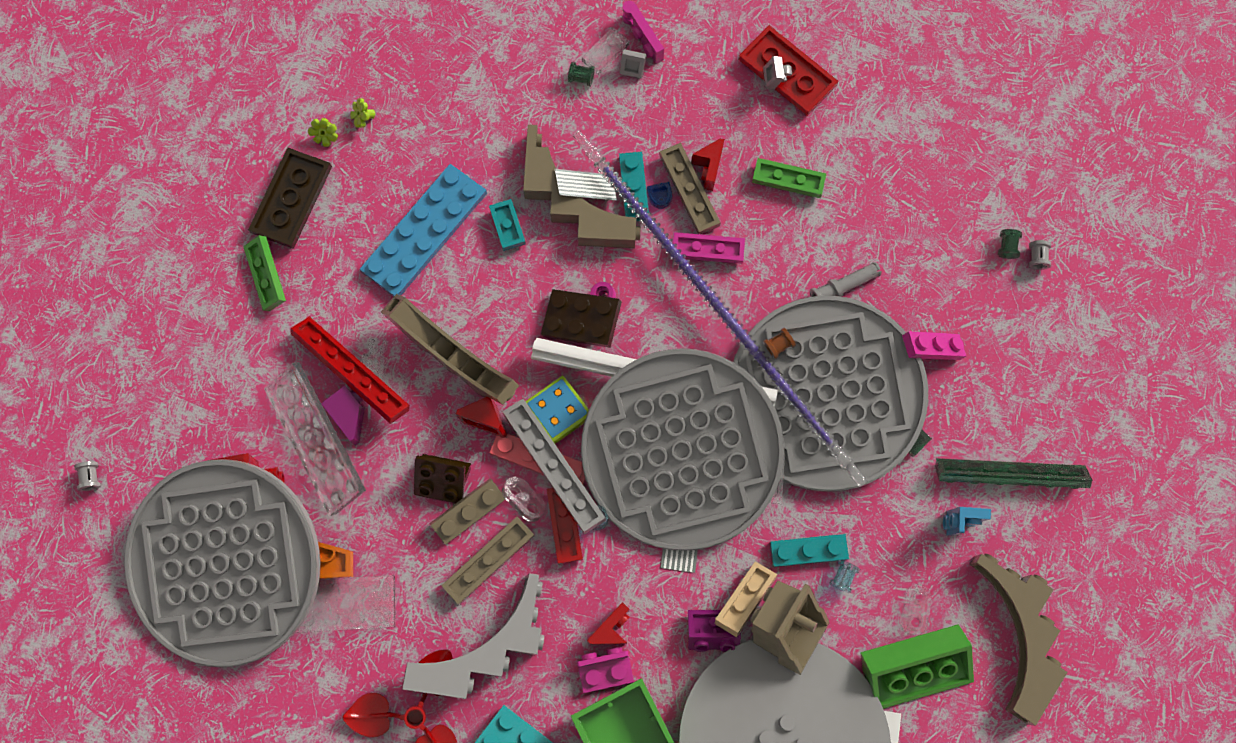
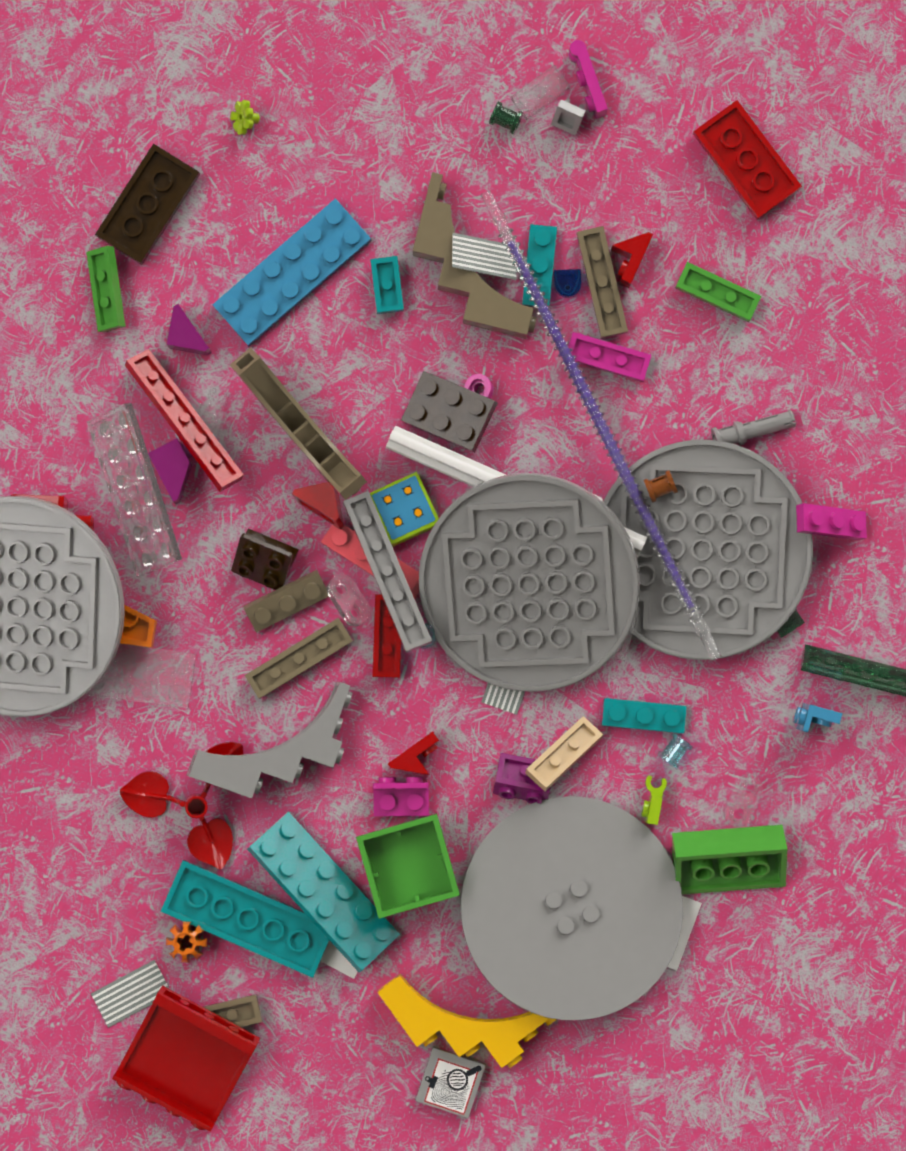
camera: 10 degrees right, 10 degrees up
(323, 131) = (196, 131): lime plant -> none
(338, 299) = (183, 335): none -> magenta slope
(775, 72) = (730, 165): light grey tile -> none
(789, 625) = (603, 790): dark tan piece -> none
(837, 632) = (652, 808): none -> lime plate
(1037, 674) = (859, 814): dark tan arch -> none

